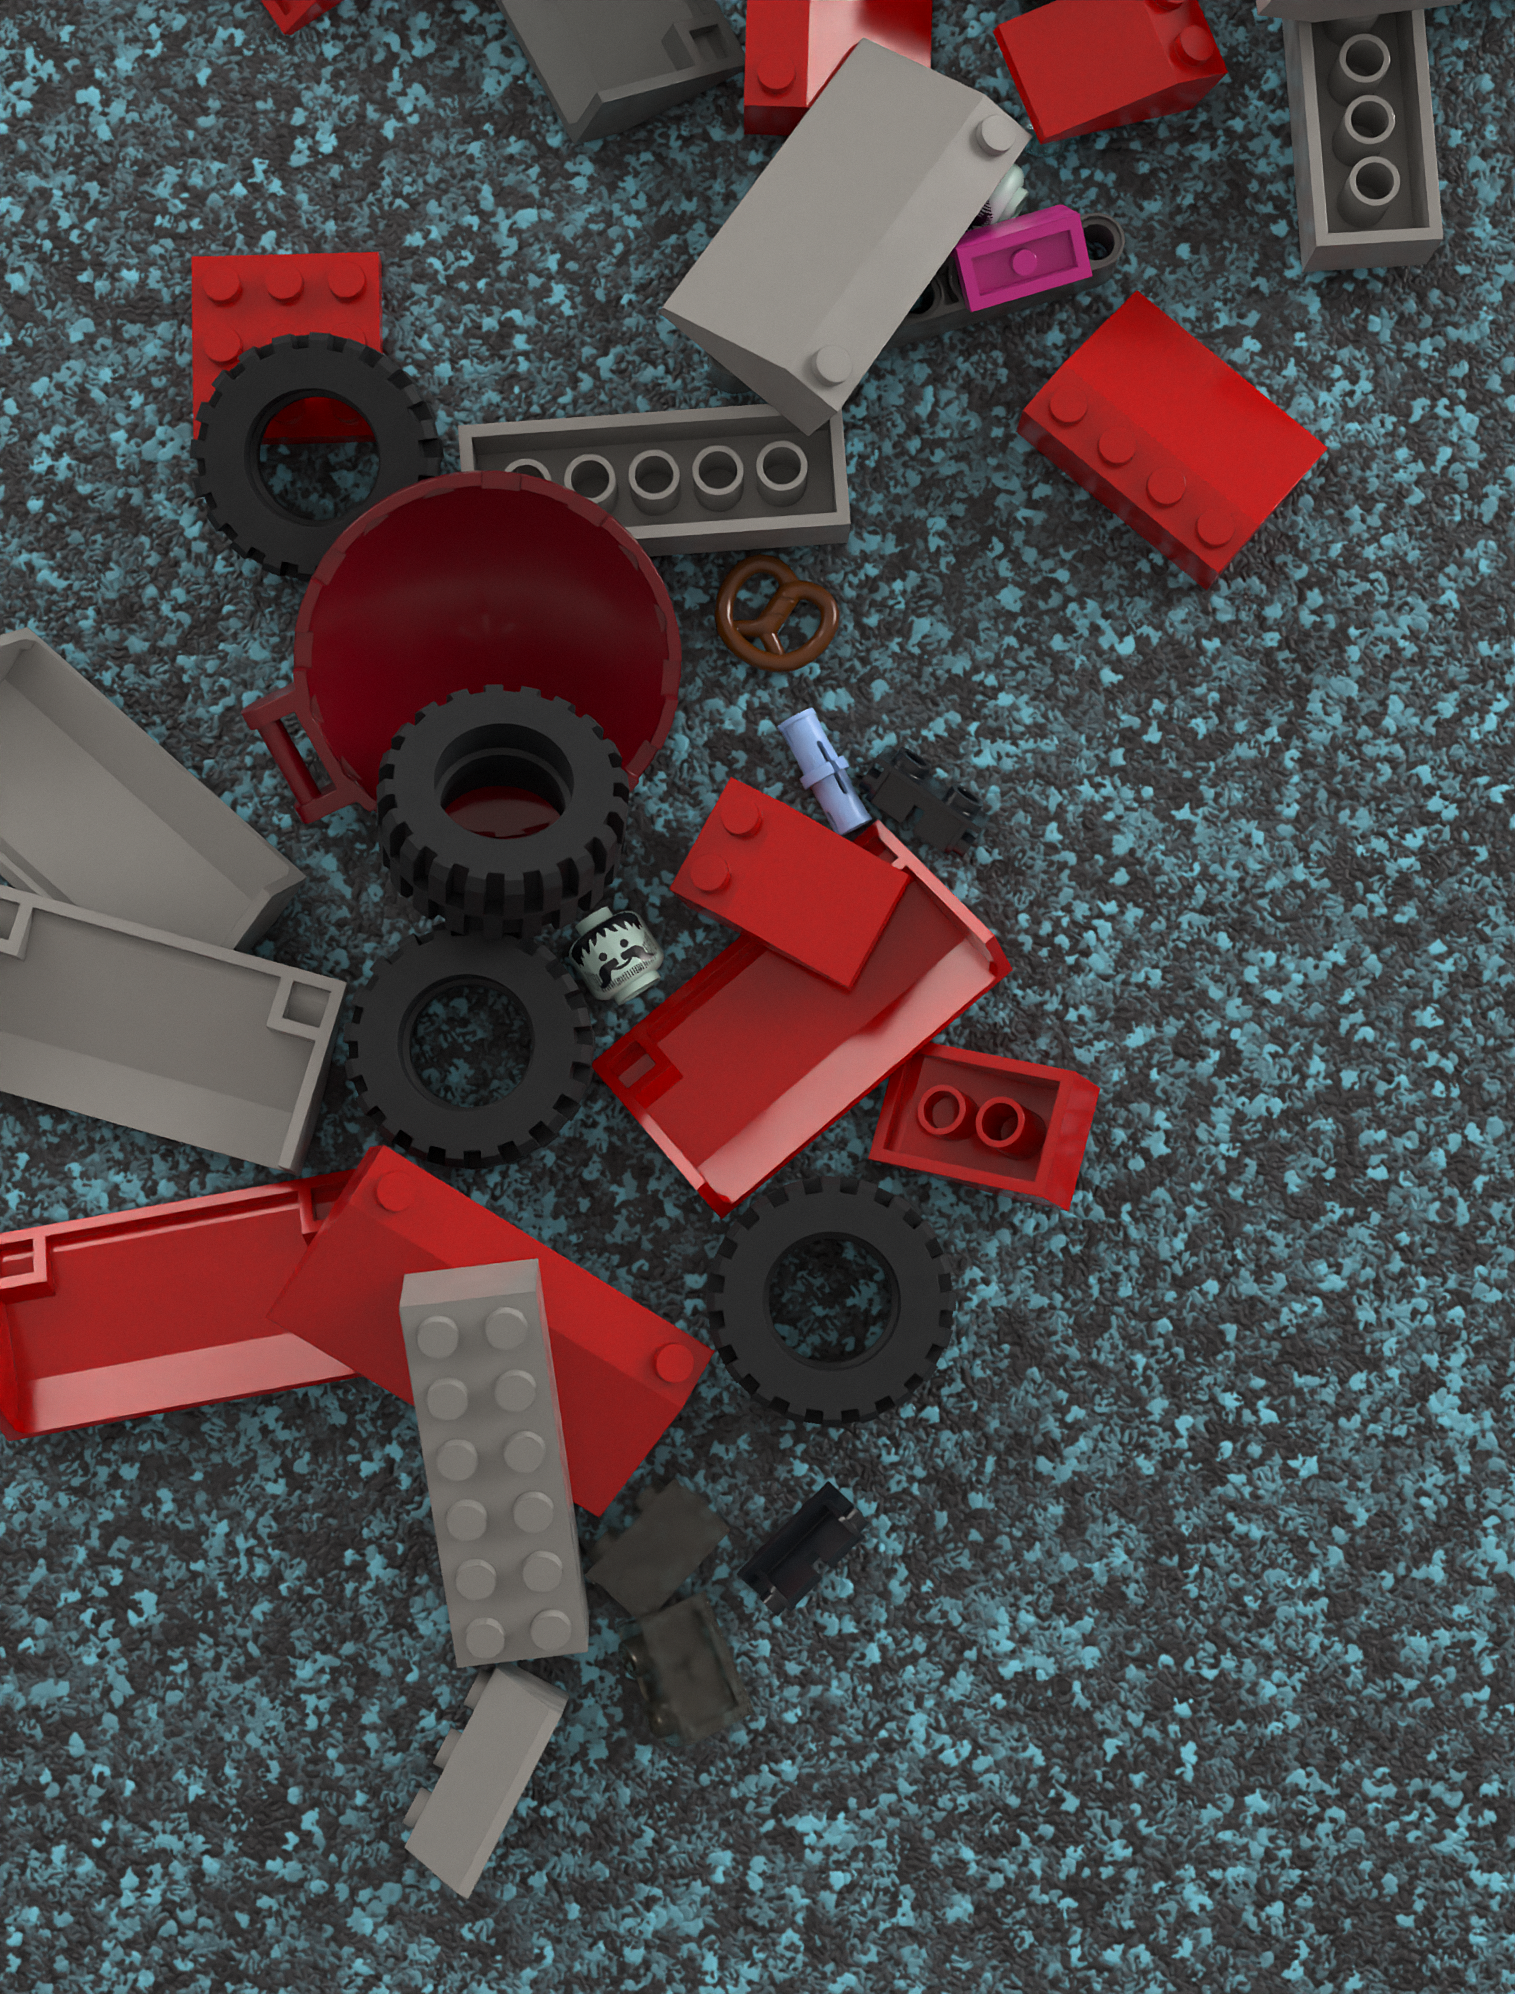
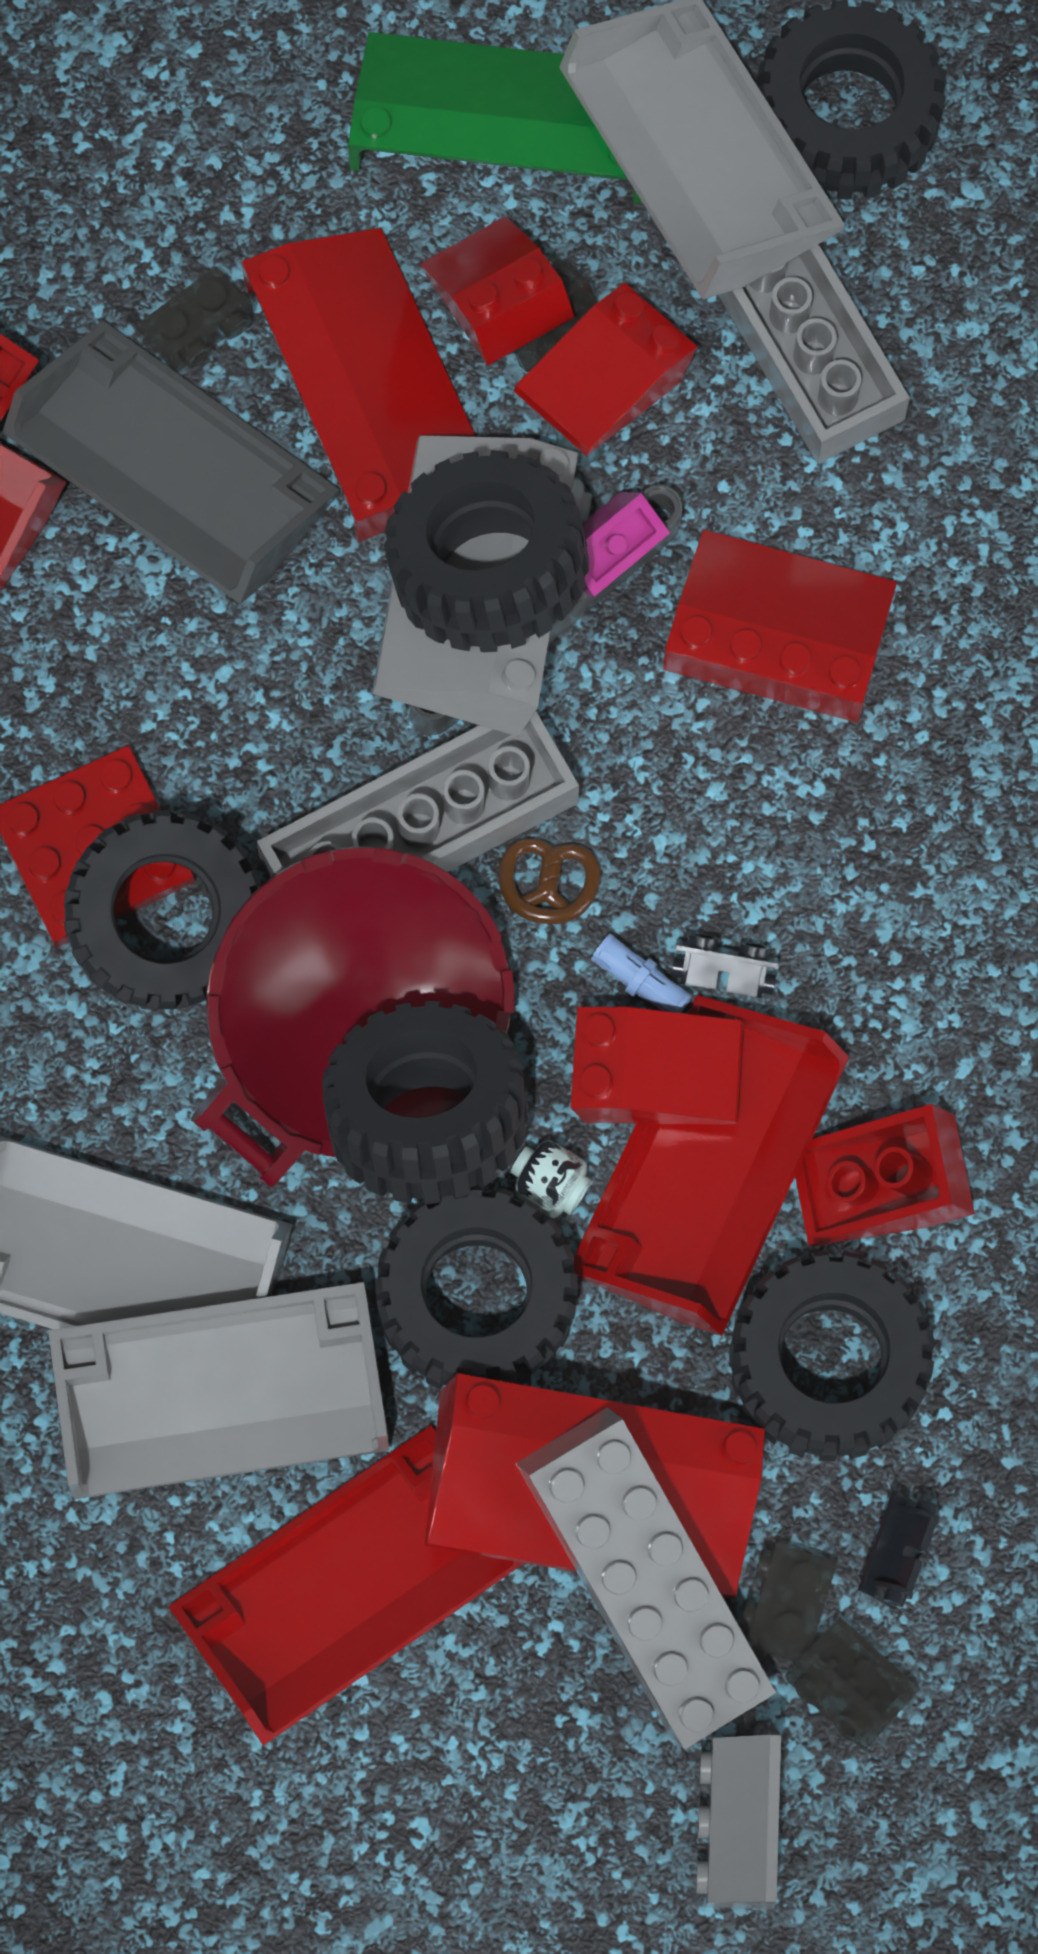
camera: 25 degrees left, 10 degrees down
(865, 133) = (474, 500): none -> black tyre

